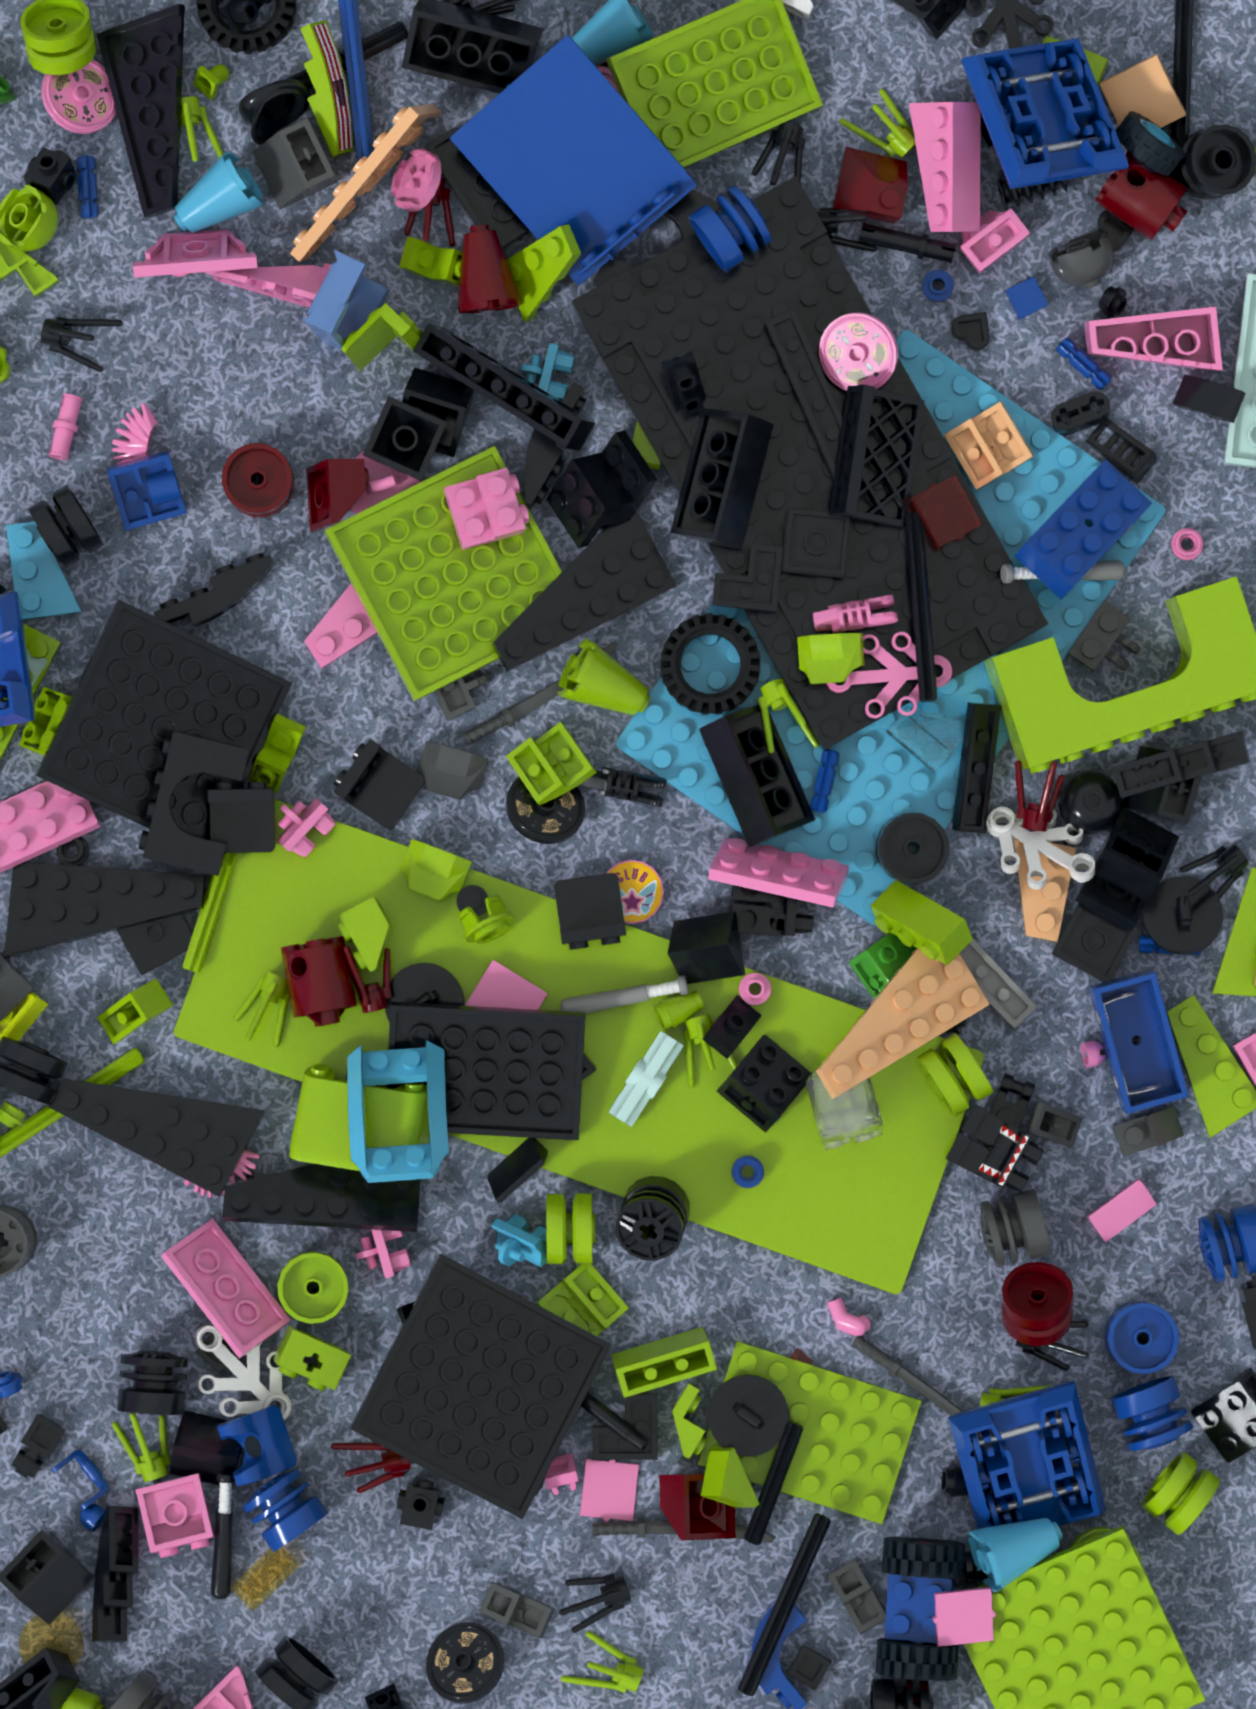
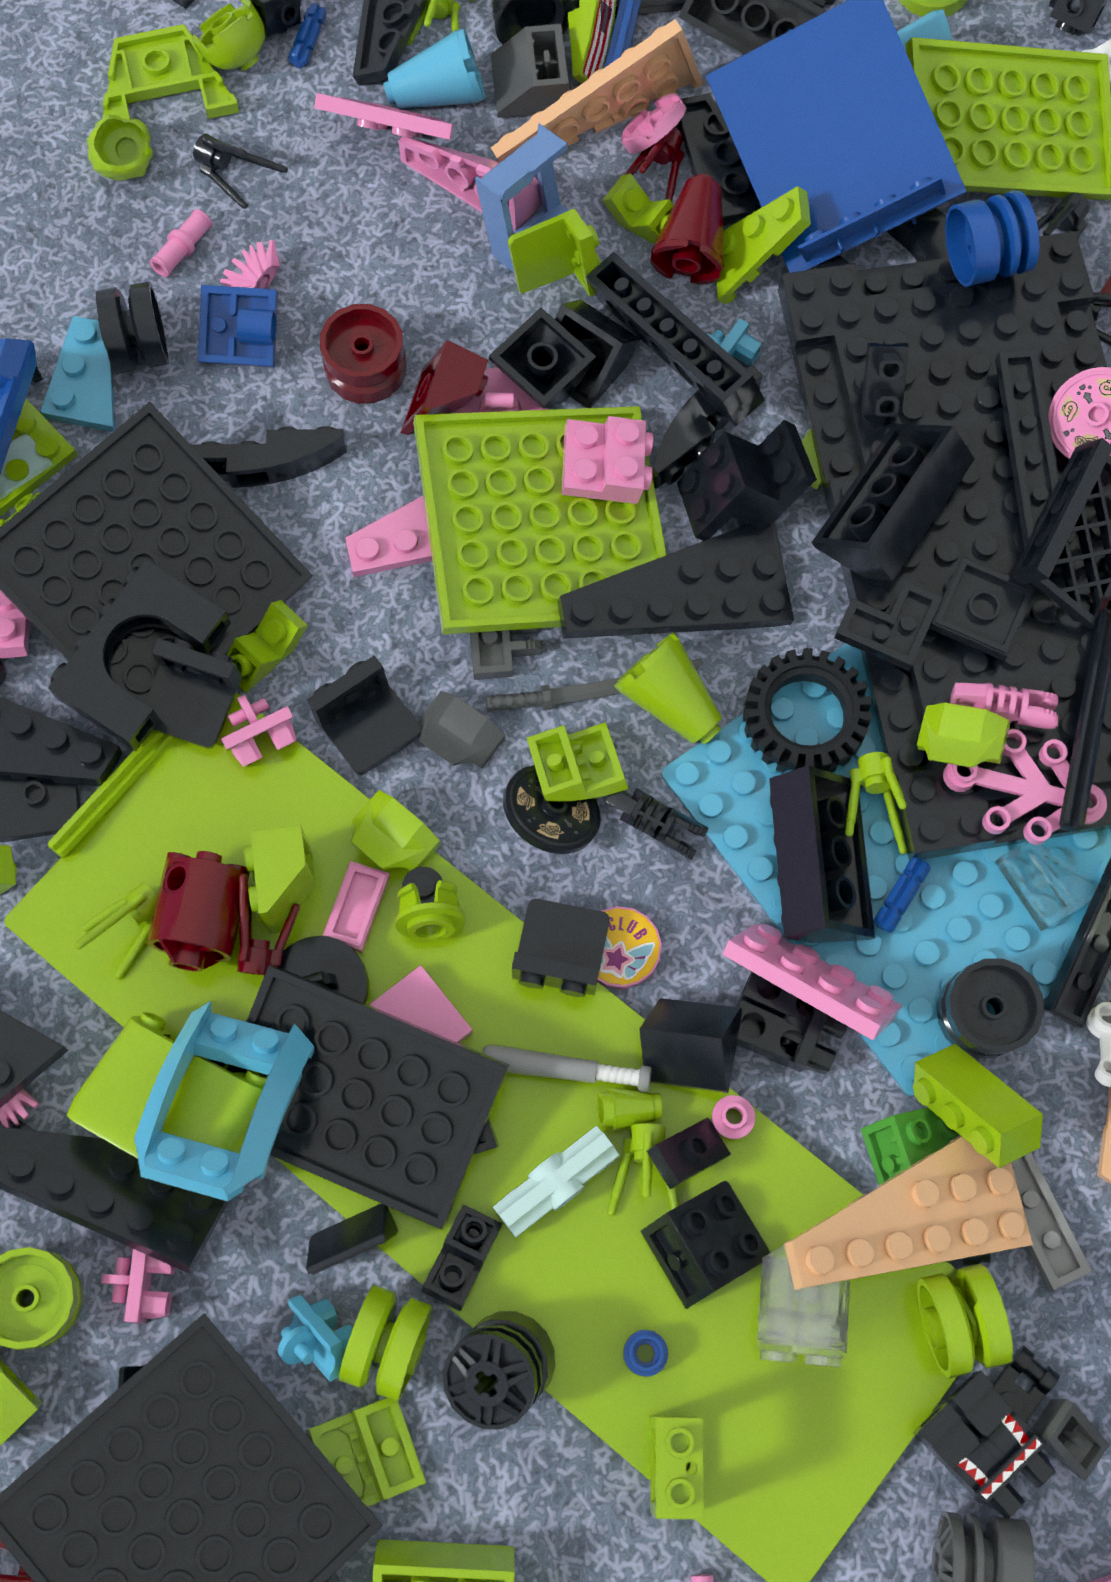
camera: 20 degrees right, 15 degrees down
(428, 931) = (357, 905): none -> bright pink tile
(599, 1153) = (461, 1257): none -> black slope
(795, 1252) = (673, 1488): none -> lime window

